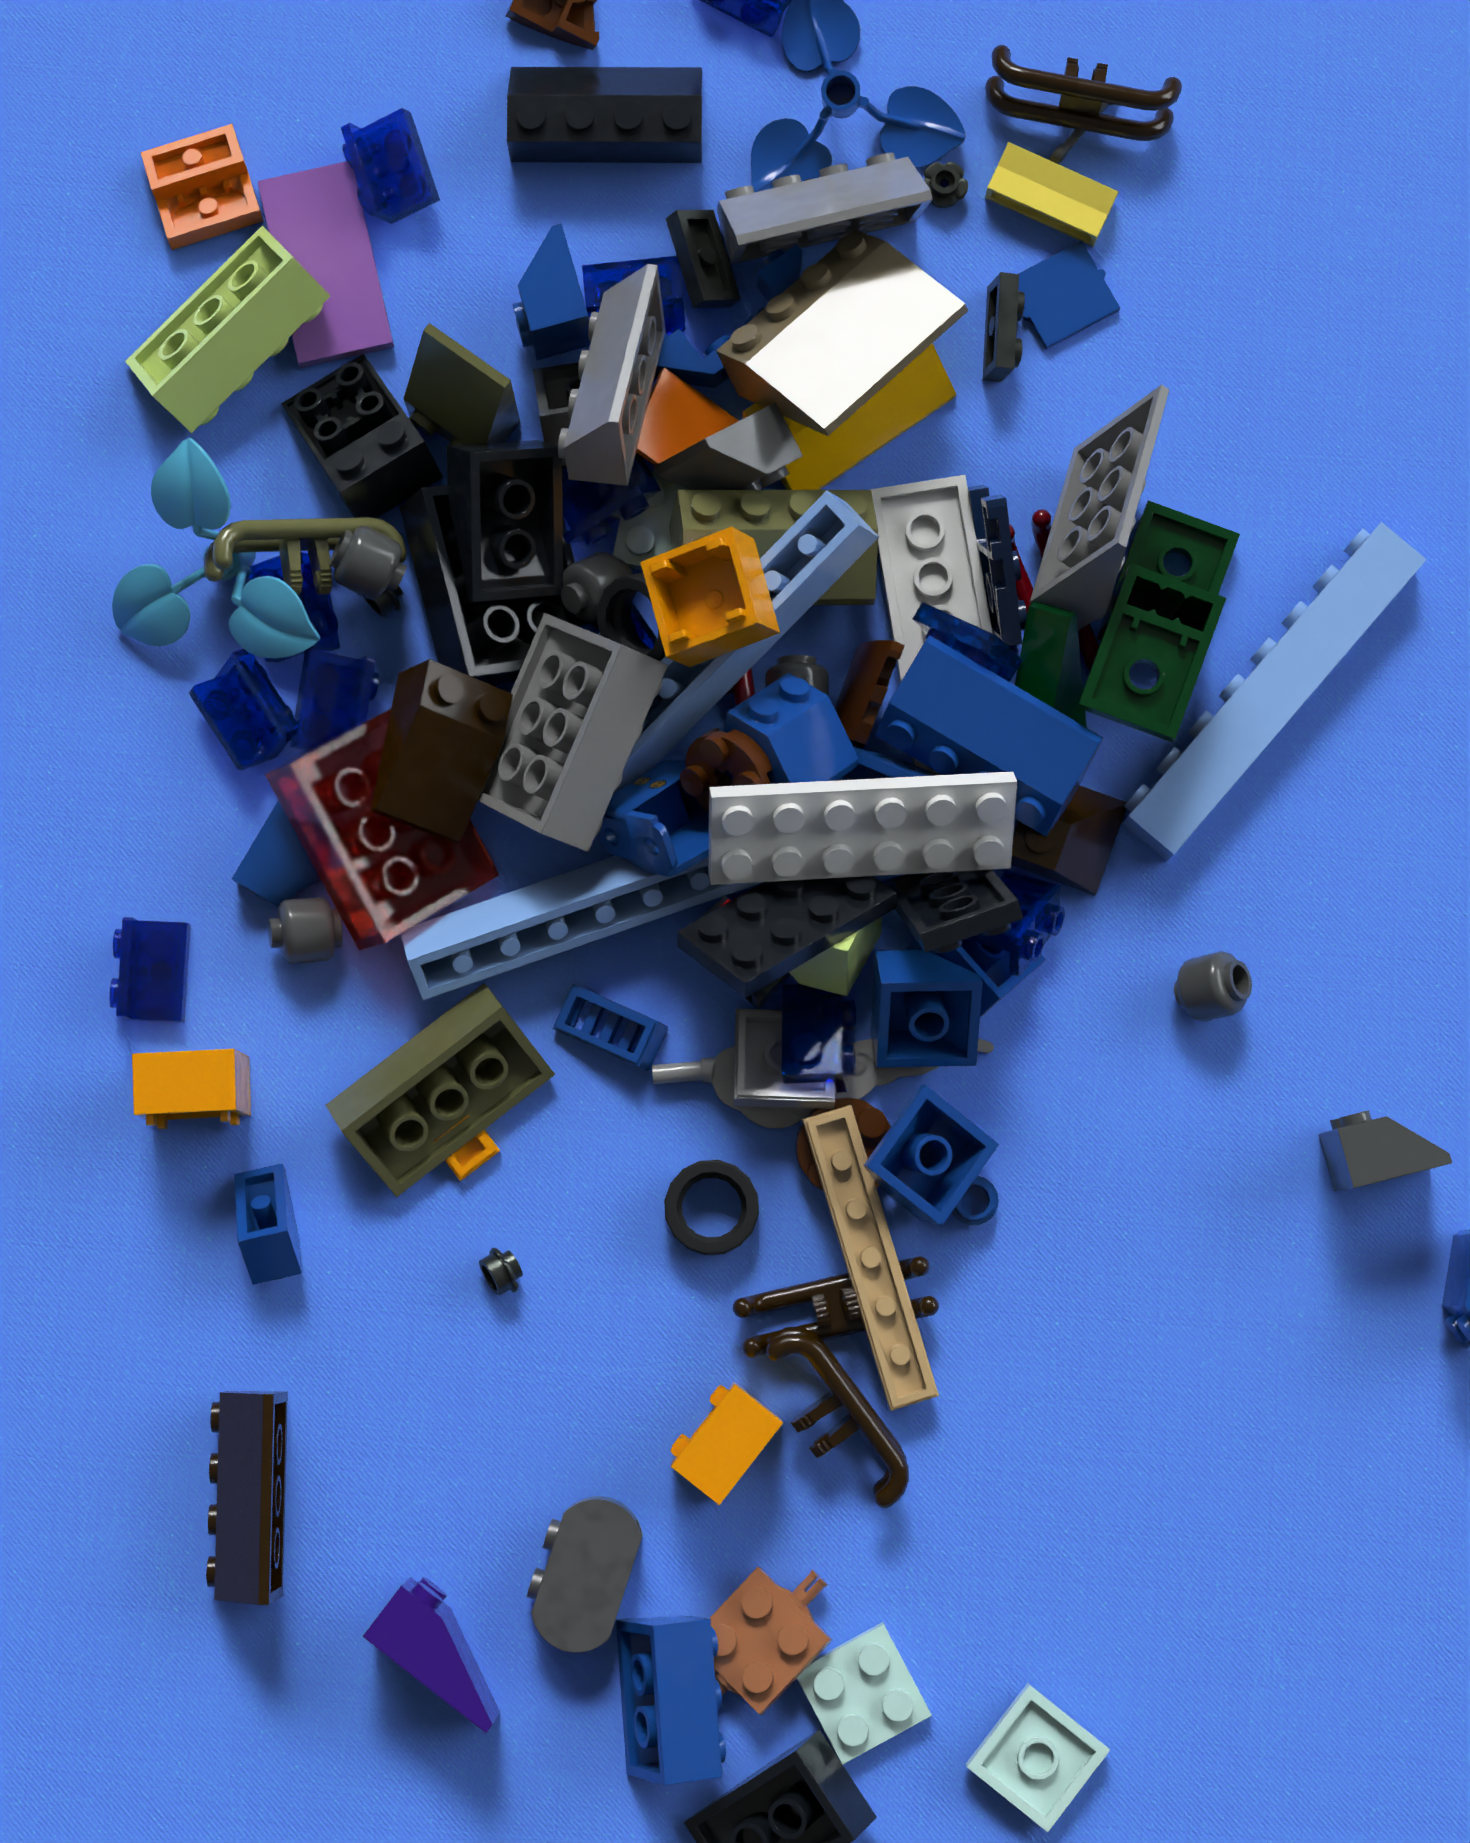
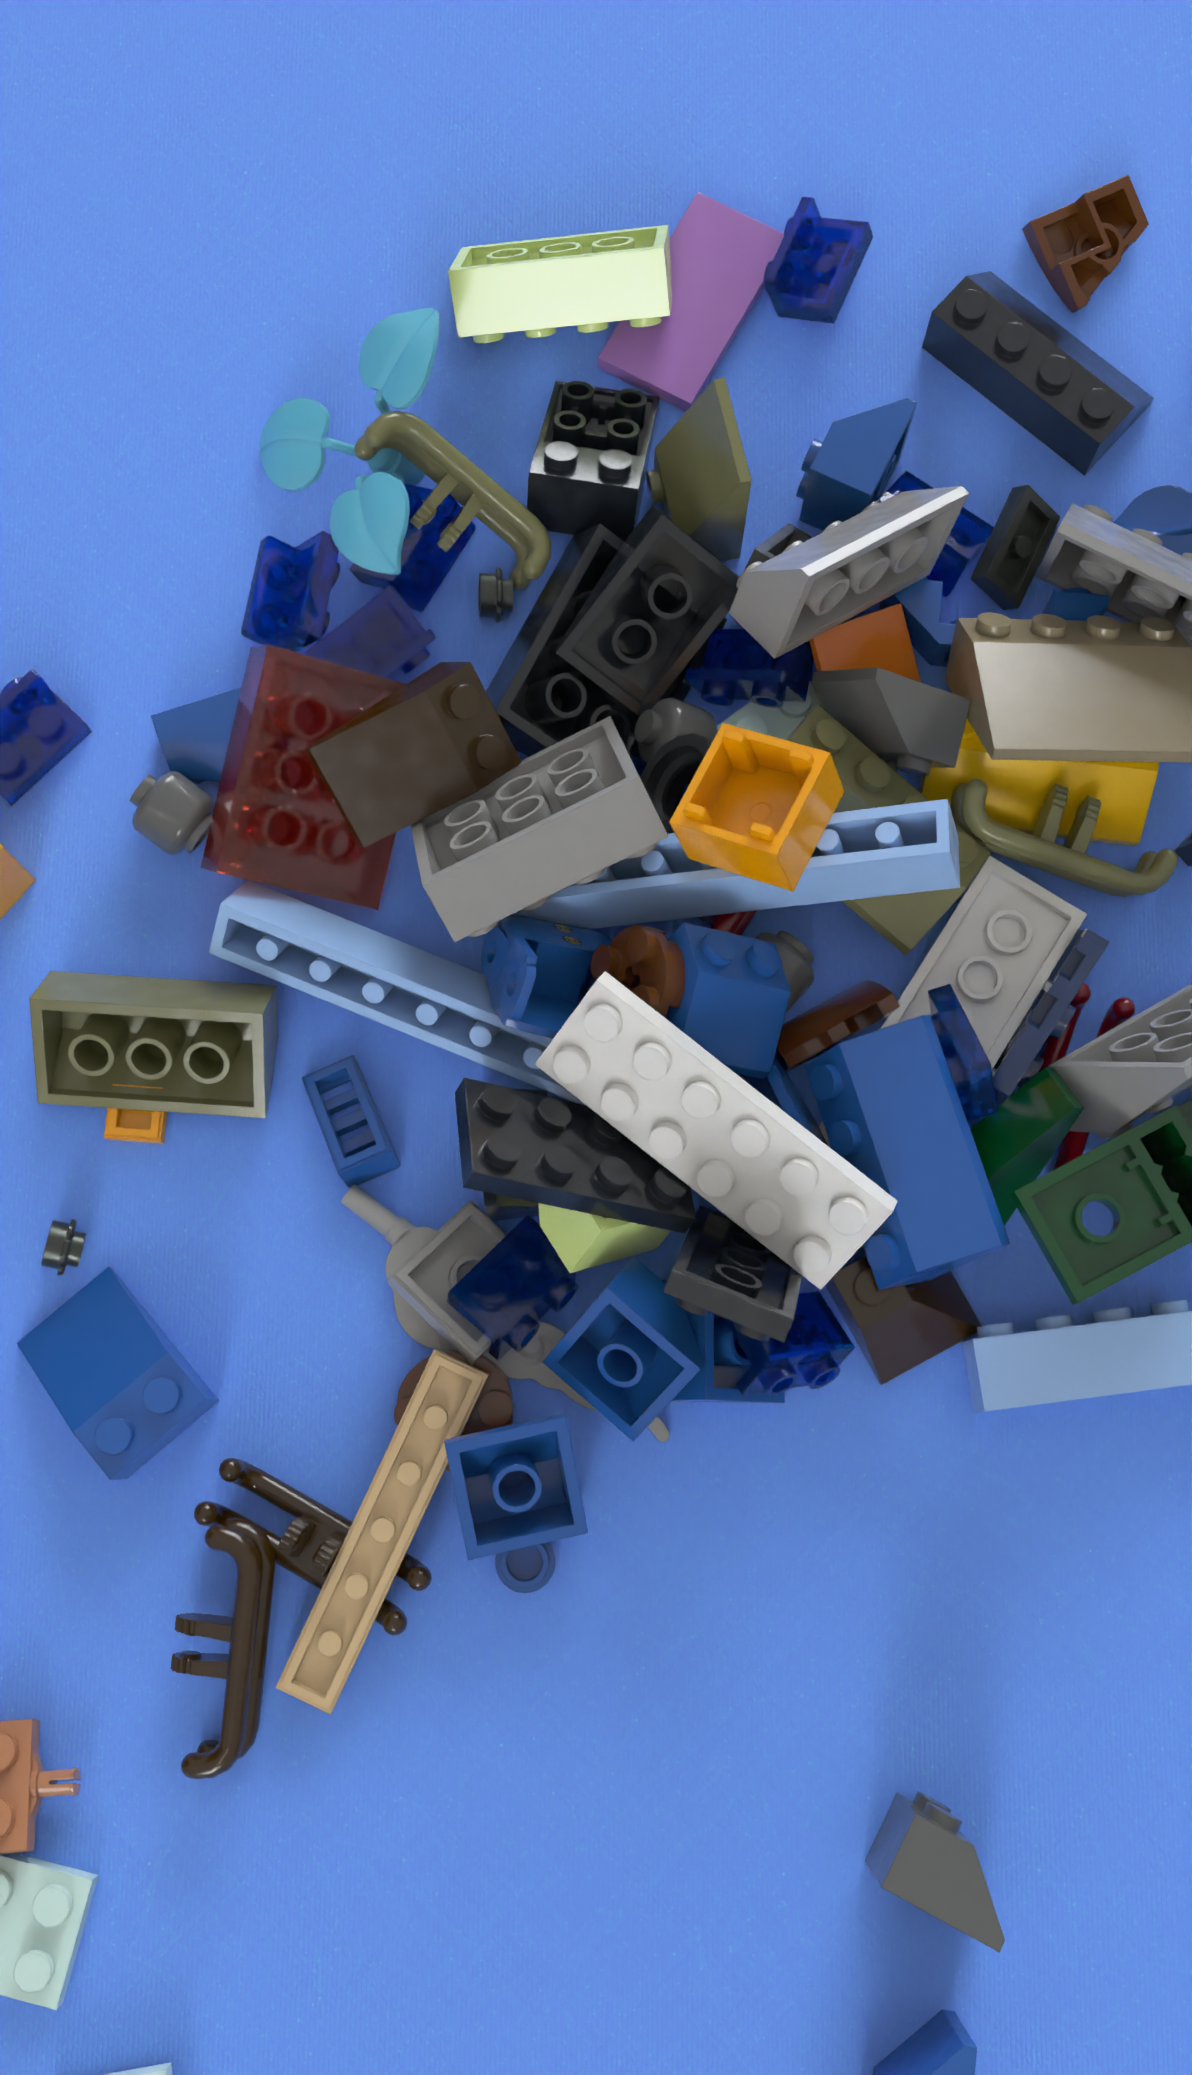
camera: 45 degrees right, 5 degrees down
(201, 186) = (649, 163): orange slope -> none
(367, 562) = (498, 548): dark grey head -> none
(609, 1318) = (115, 1376): none -> blue slope
(722, 1171) = (247, 1342): black tyre -> none
(725, 1442) = (99, 1580): light orange container -> none
(982, 418) = (1043, 853): none -> olive piece
(1213, 986) = (916, 1565): dark grey head -> none

